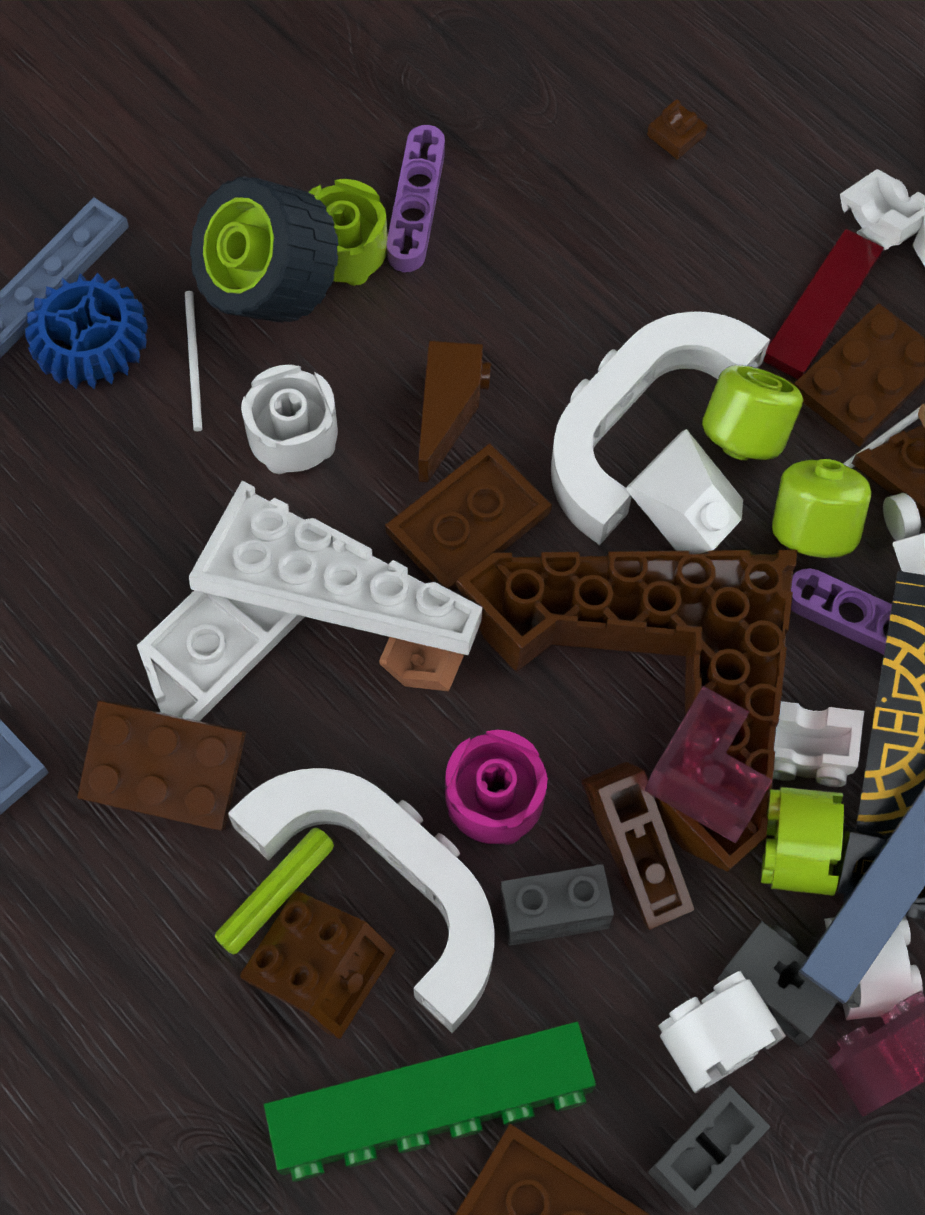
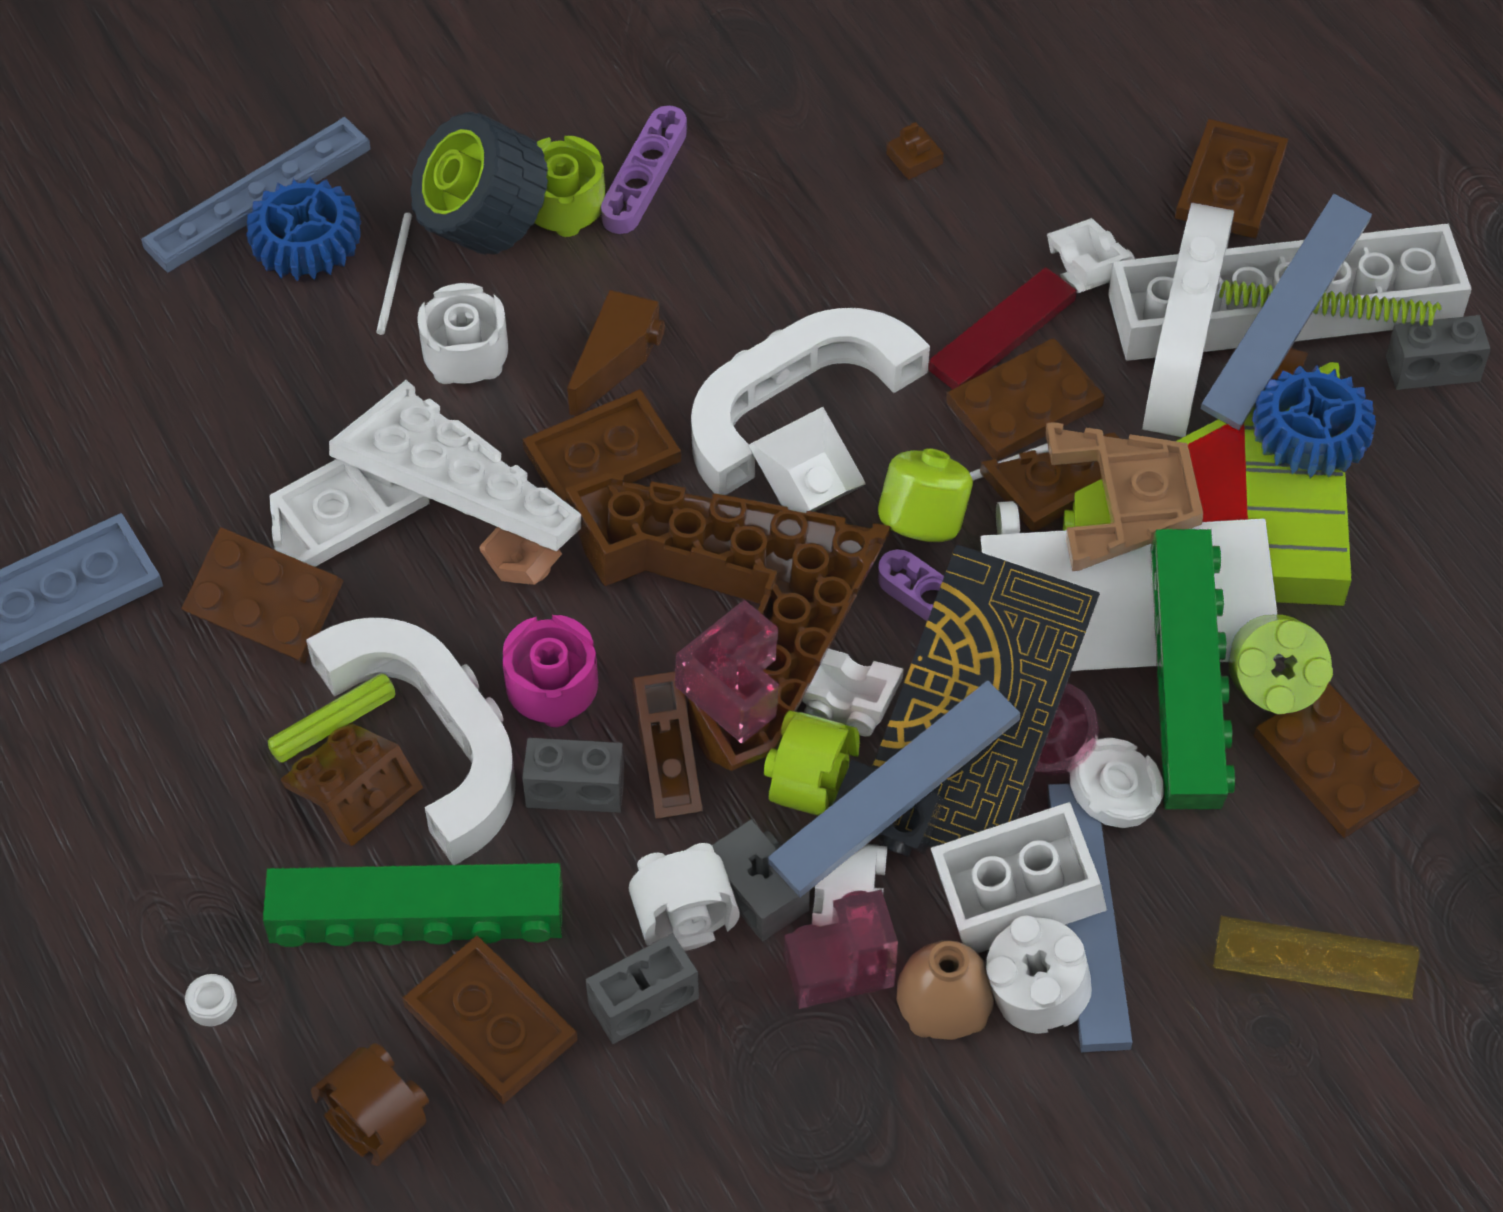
camera: 15 degrees right, 10 degrees down
(751, 413) = (890, 405): lime head -> none

